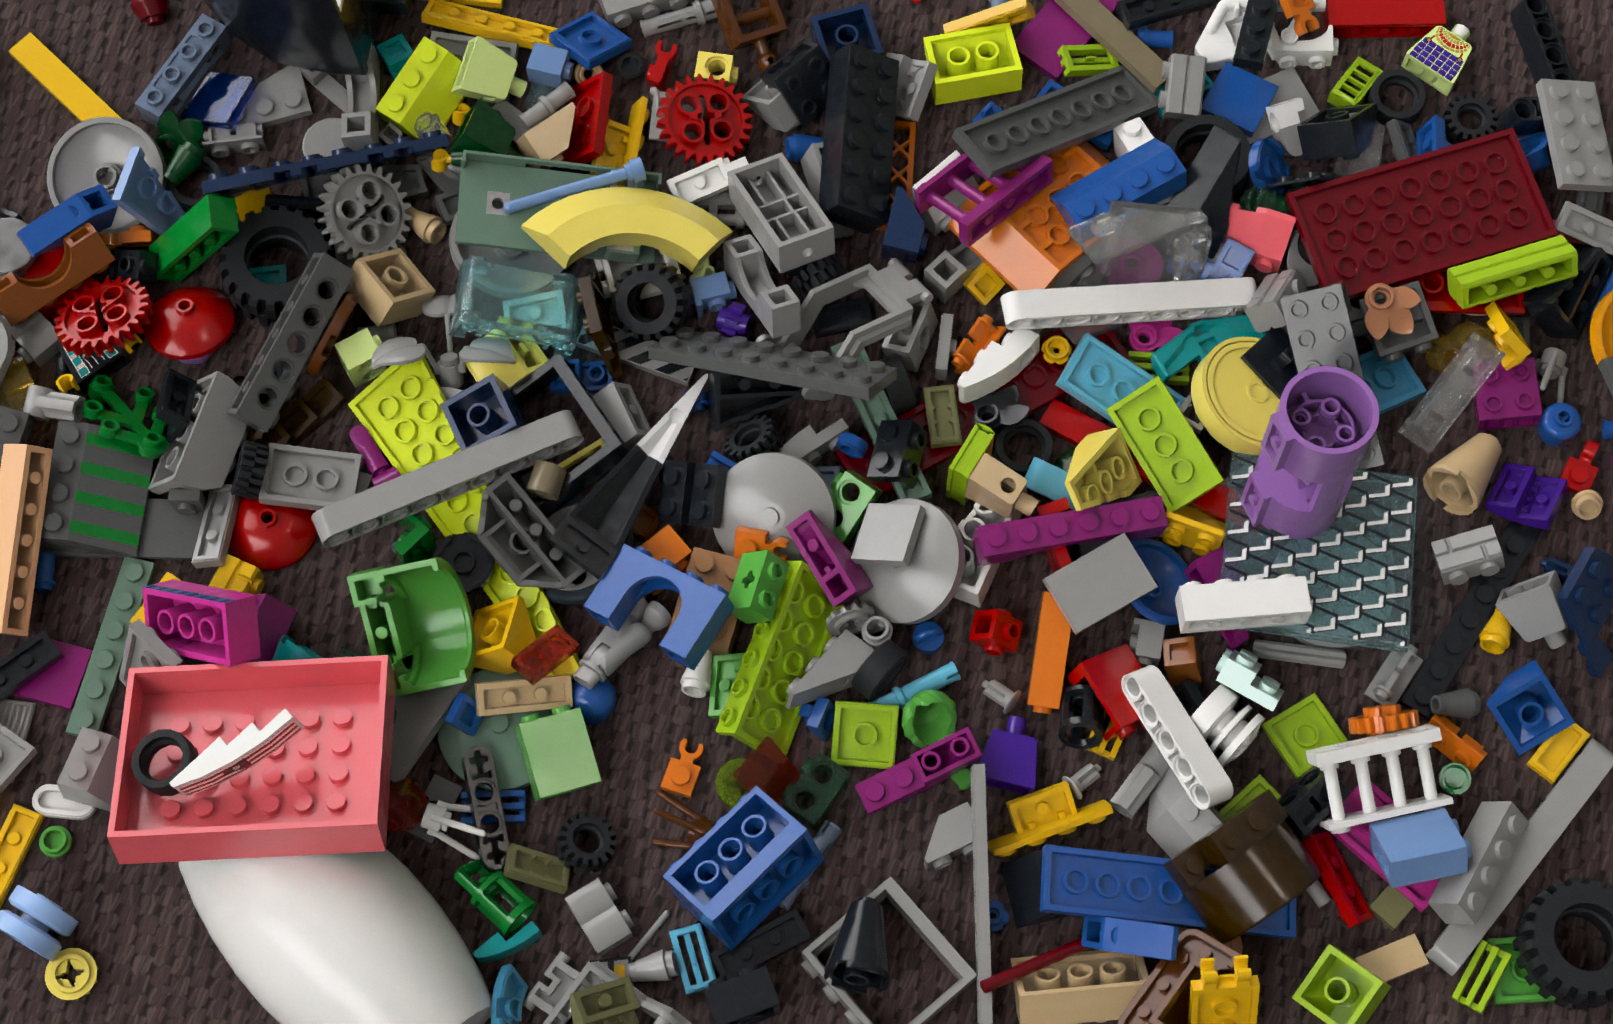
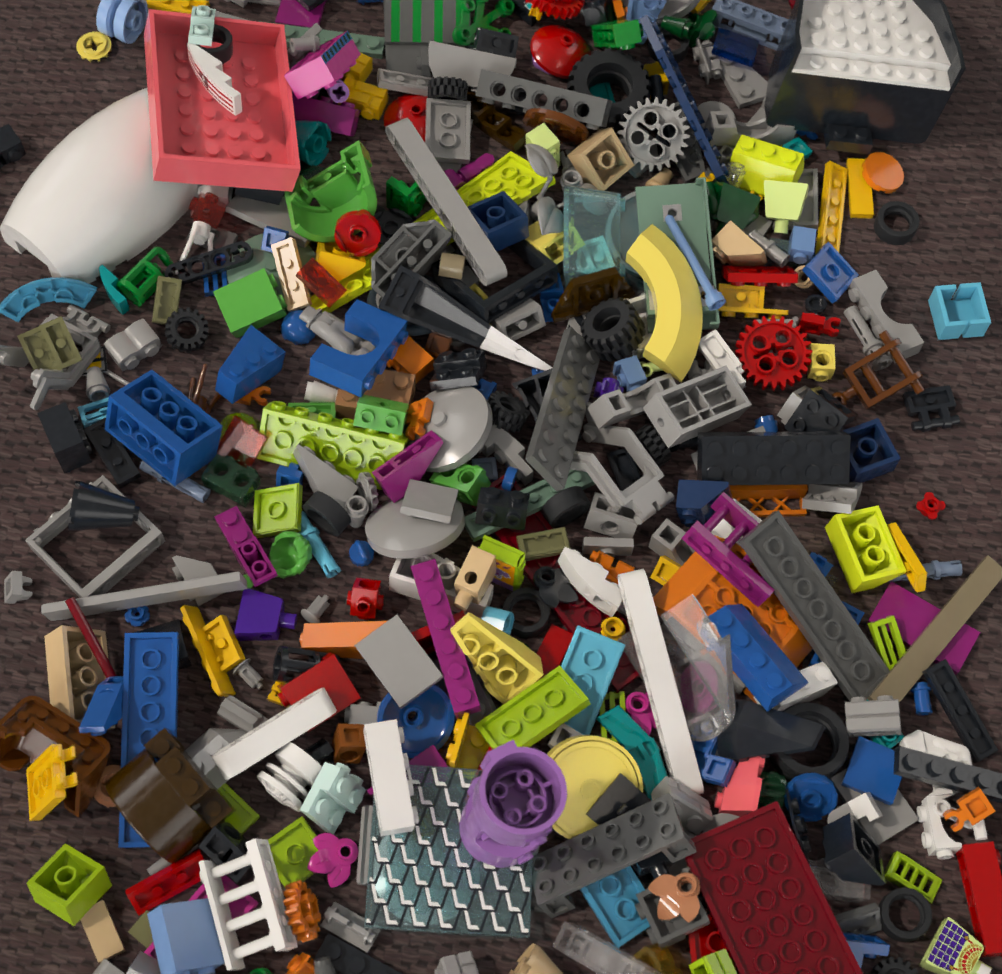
camera: 80 degrees right, 5 degrees down
(143, 767) = (202, 25): none -> light aqua slope
(167, 634) = (305, 44): none -> light grey pin
(419, 327) = (571, 178): none -> light grey cone
(470, 611) = (362, 221): none -> red plate
(654, 757) = (249, 365): none -> blue wedge
(1318, 692) = (329, 858): none -> dark pink plate

